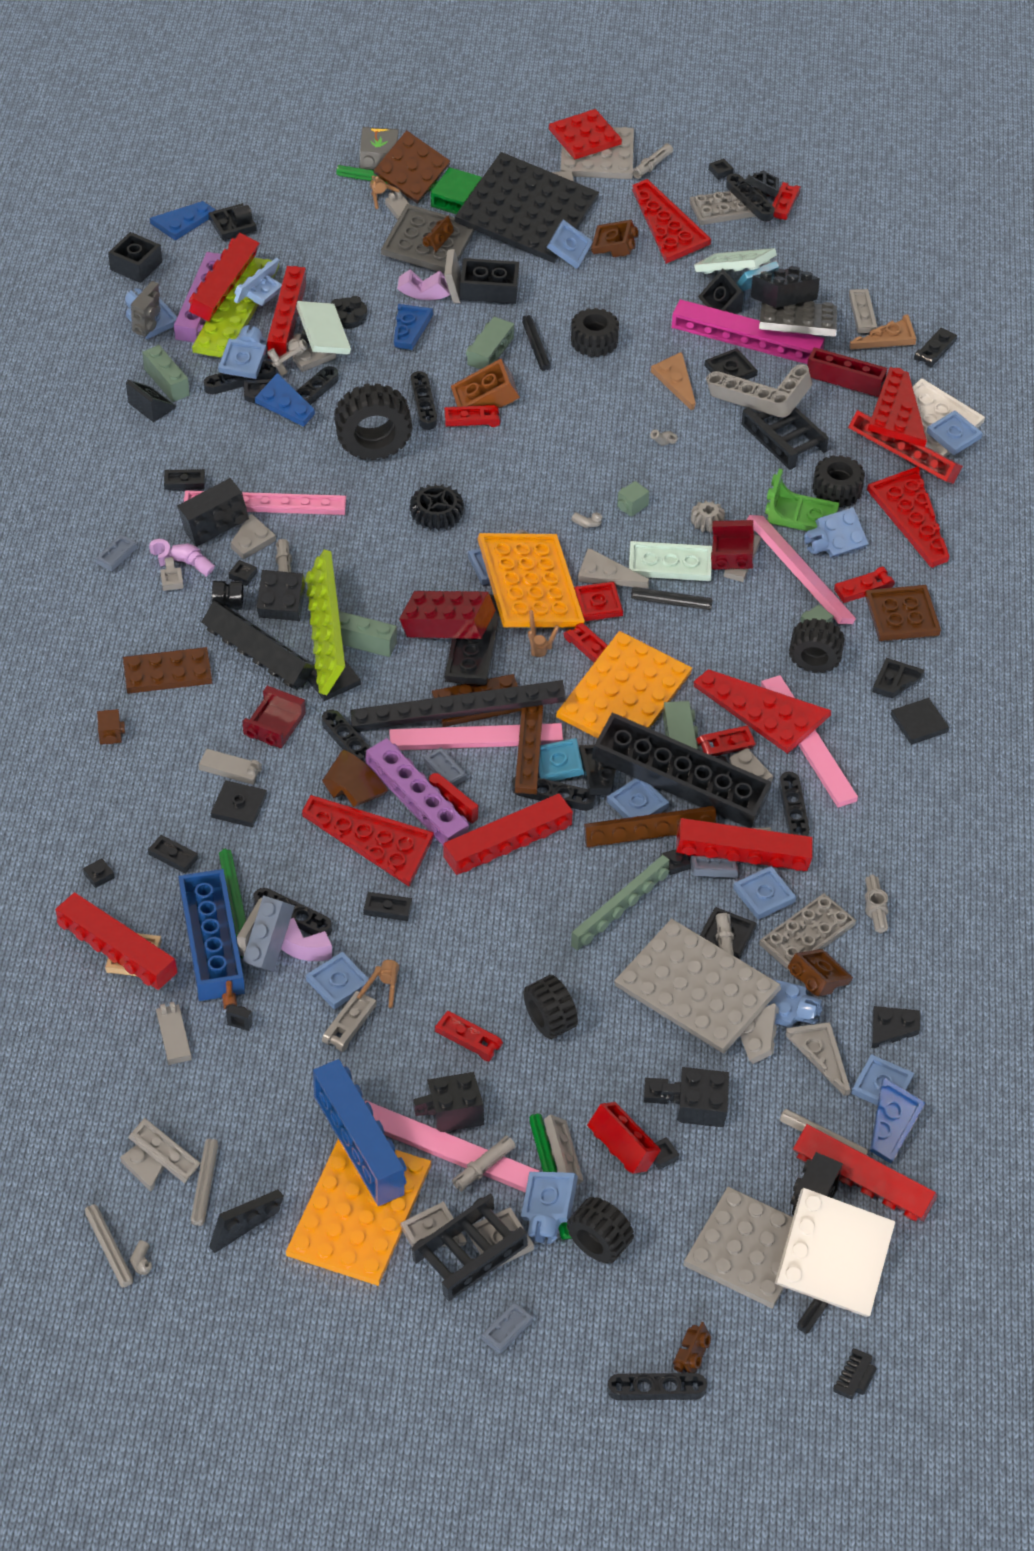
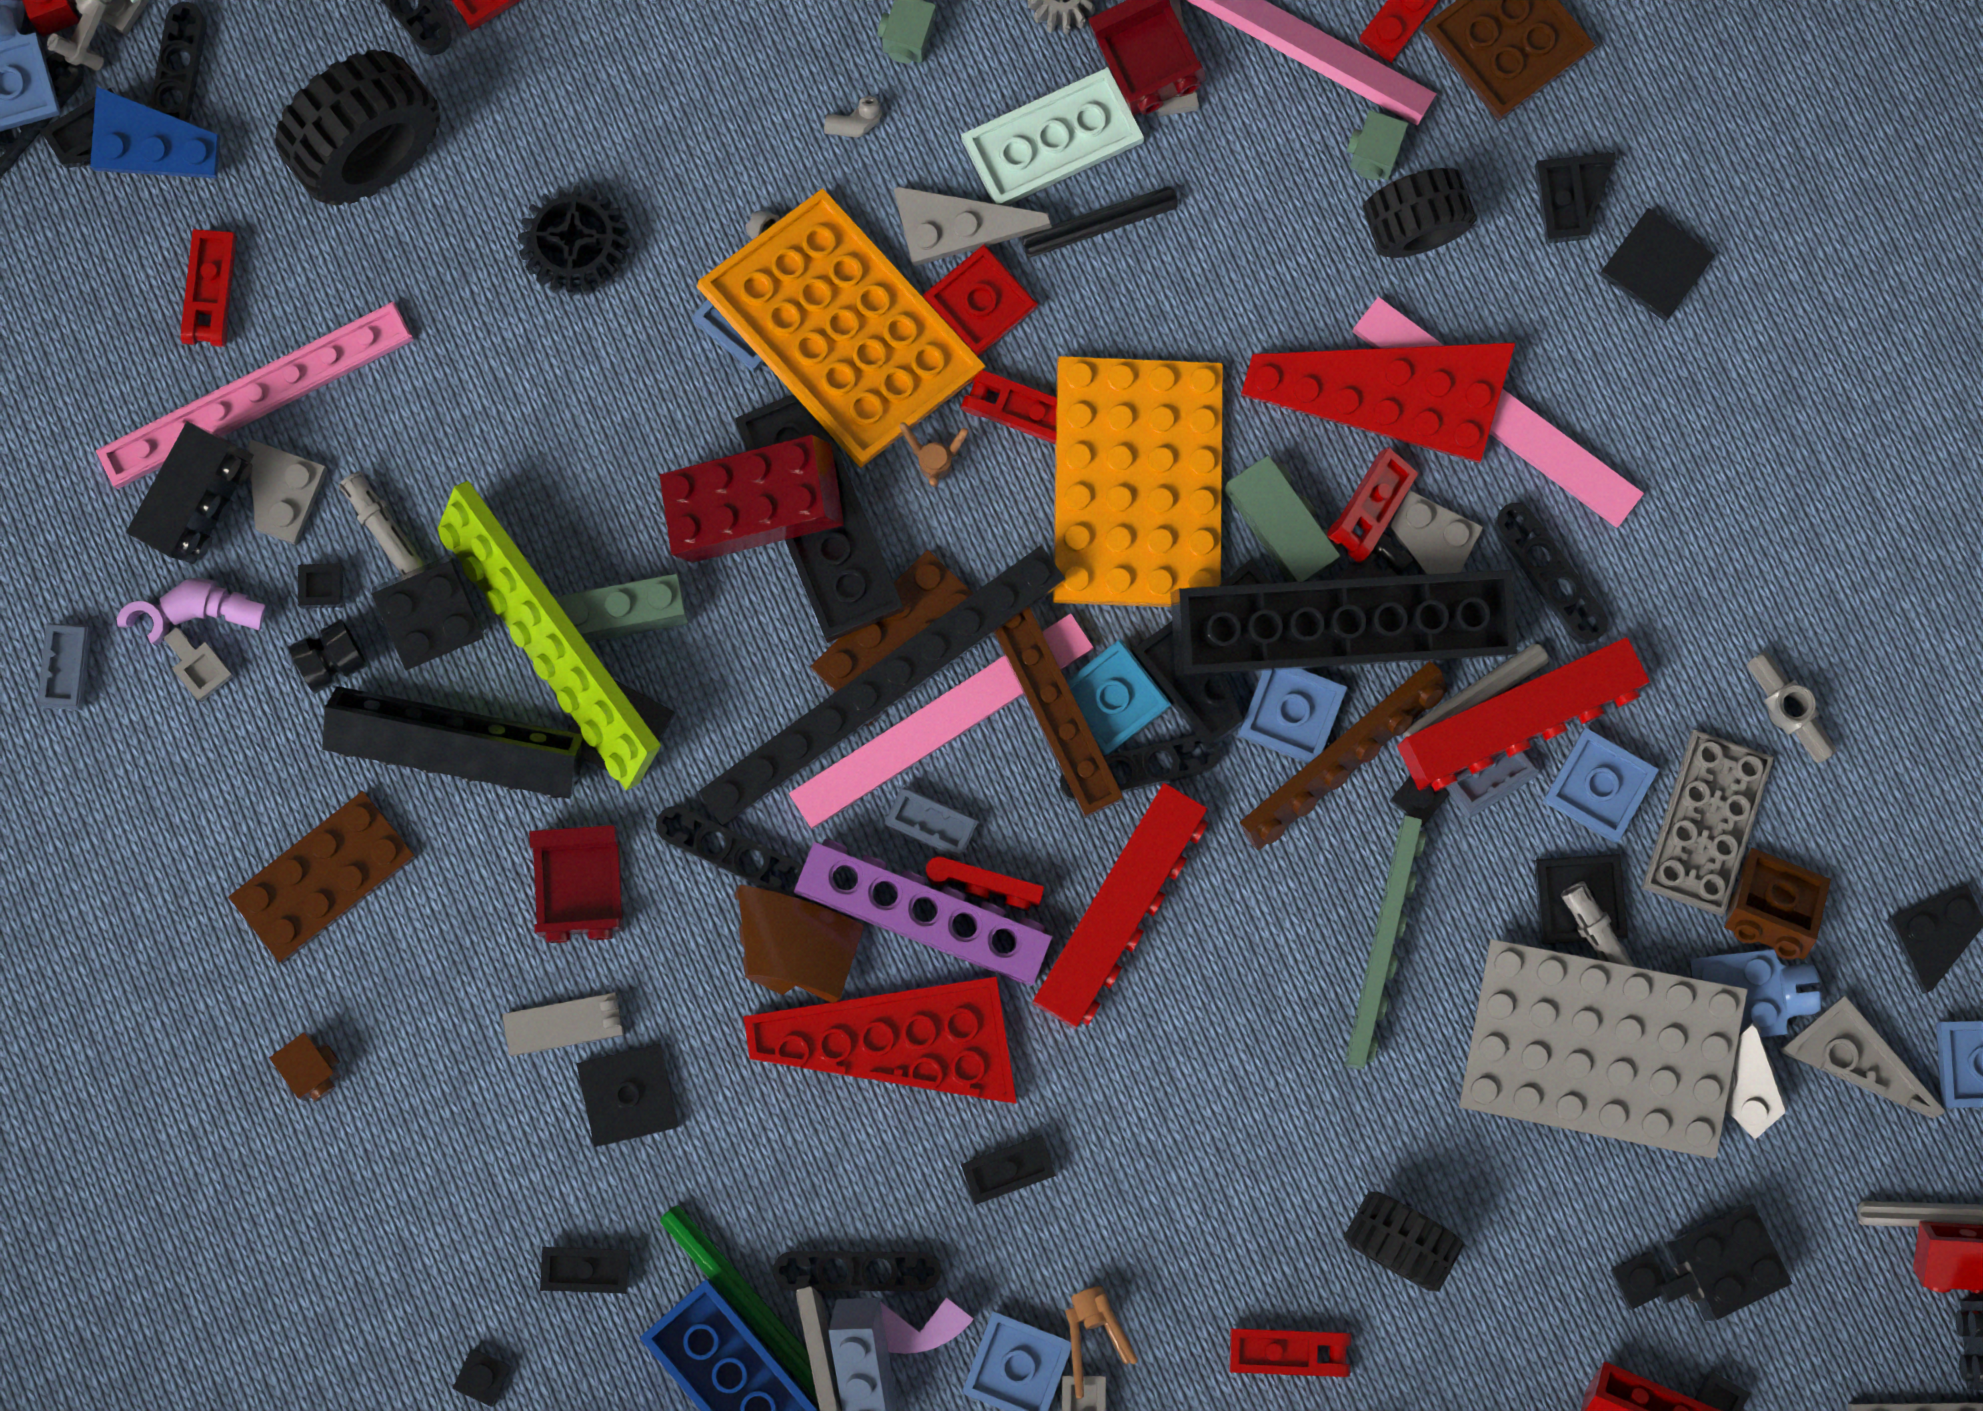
camera: 30 degrees left, 30 degrees up
(184, 479) = (77, 425): black plate -> none
(272, 459) = (208, 286): none -> red plate

